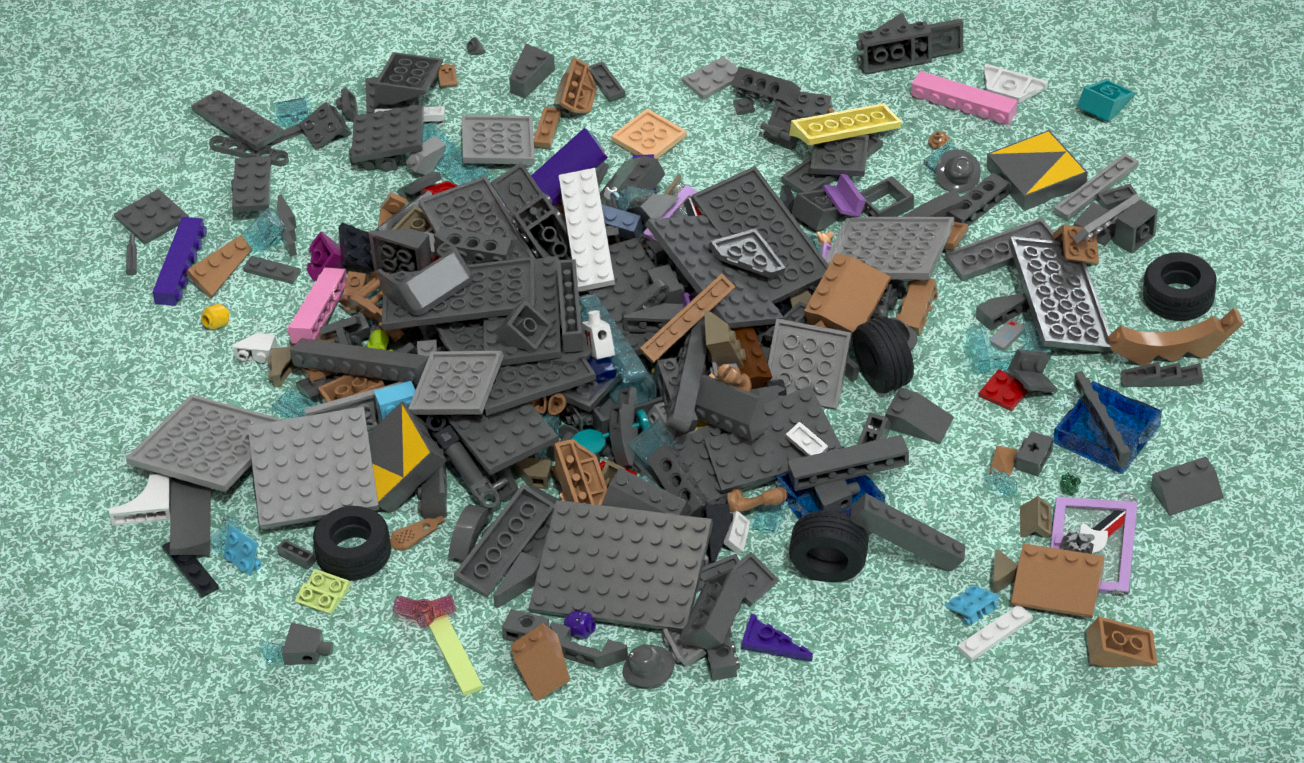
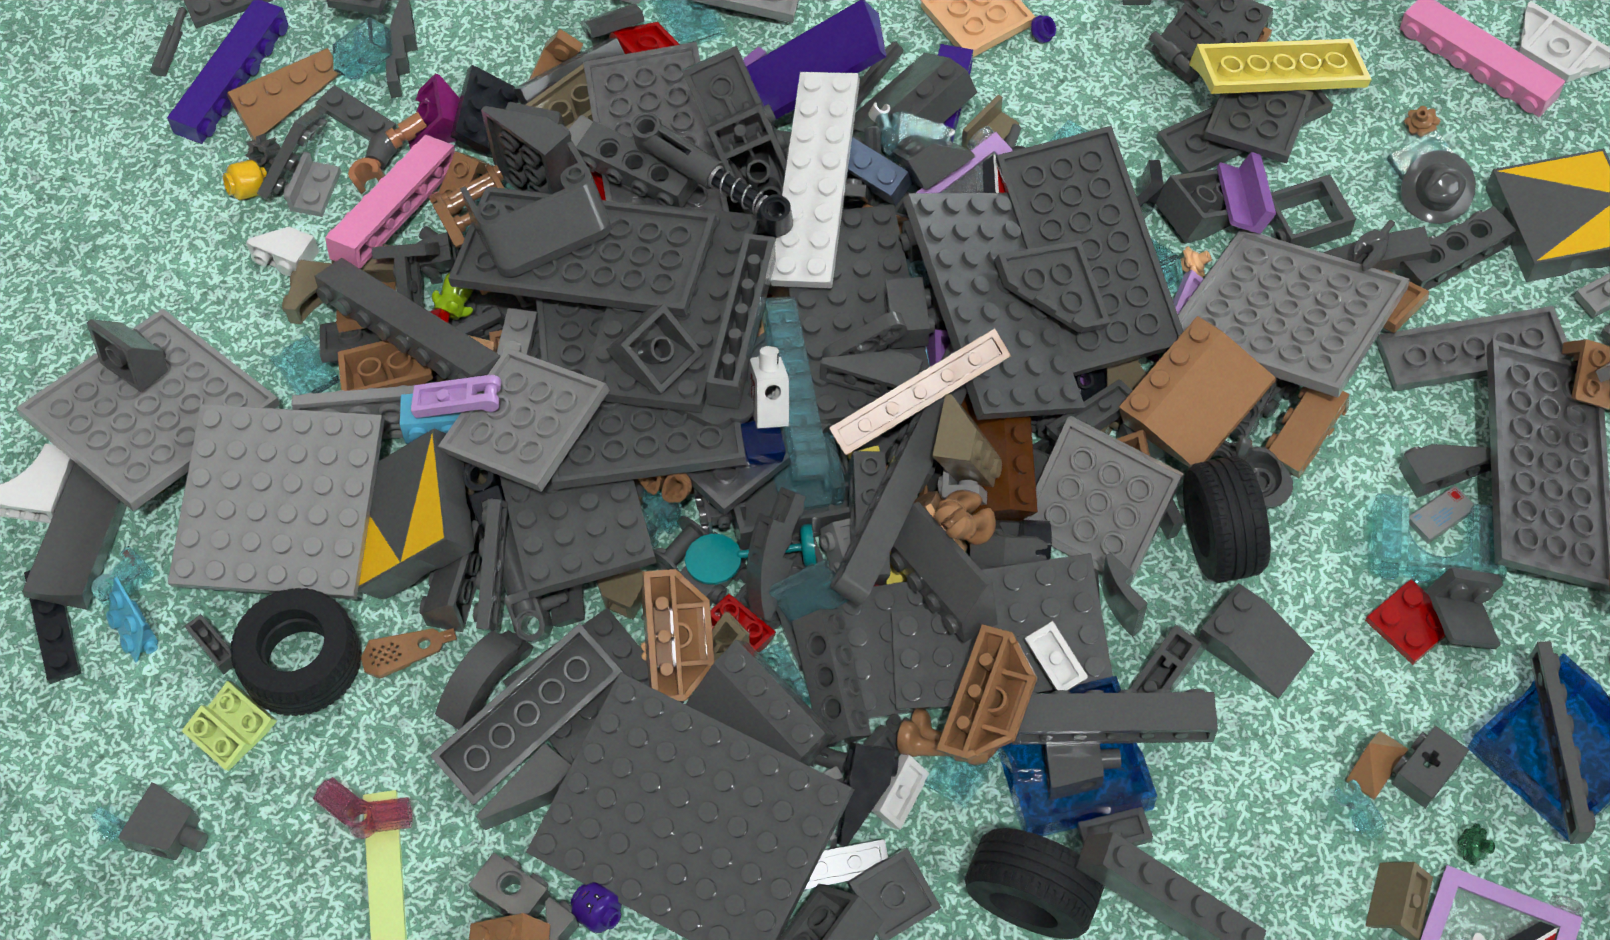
camera: 15 degrees right, 15 degrees up
(186, 414) = (127, 353): none -> dark grey slope
(216, 297) = (263, 151): none -> dark grey gear
(242, 296) = (301, 131): none -> dark grey plate
(259, 312) = (311, 186): none -> light grey bracket
(298, 281) = (381, 149): none -> nougat piece
(411, 380) = (456, 396): none -> lavender plate
(460, 474) = (492, 554): none -> dark grey plate
(482, 225) = (709, 172): none -> piece
(692, 136) = (1043, 28): none -> dark purple plate
(775, 460) = (989, 696): none -> medium nougat wedge
(836, 409) = (1122, 600): none -> dark grey slope
(927, 203) = (1375, 243): none -> dark grey hand

